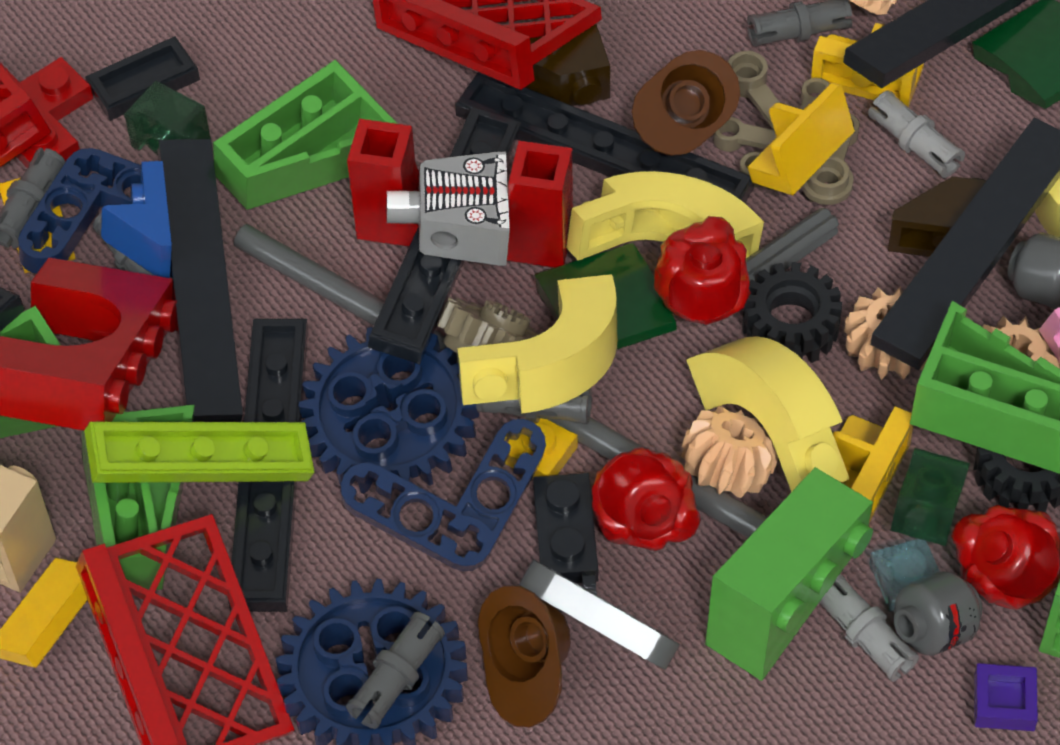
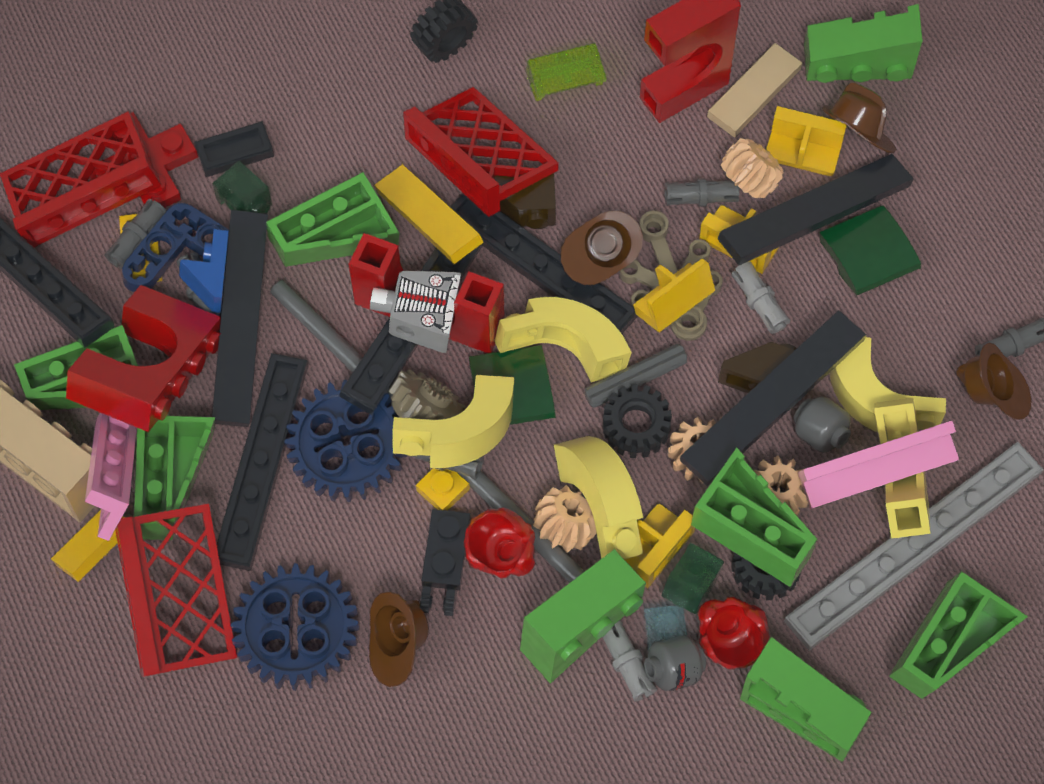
camera: 10 degrees right, 10 degrees up
(61, 492) = (111, 471): none -> bright pink fence
(198, 452) = (210, 454): lime tile -> none
(395, 670) = (306, 636): dark grey pin -> none
(440, 102) = (428, 214): none -> yellow tile
(468, 513) = (382, 527): dark blue beam -> none
(599, 614) = (450, 620): beam -> none
(703, 272) = (578, 385): red hair -> none
(1005, 697) = (705, 730): dark purple plate -> none

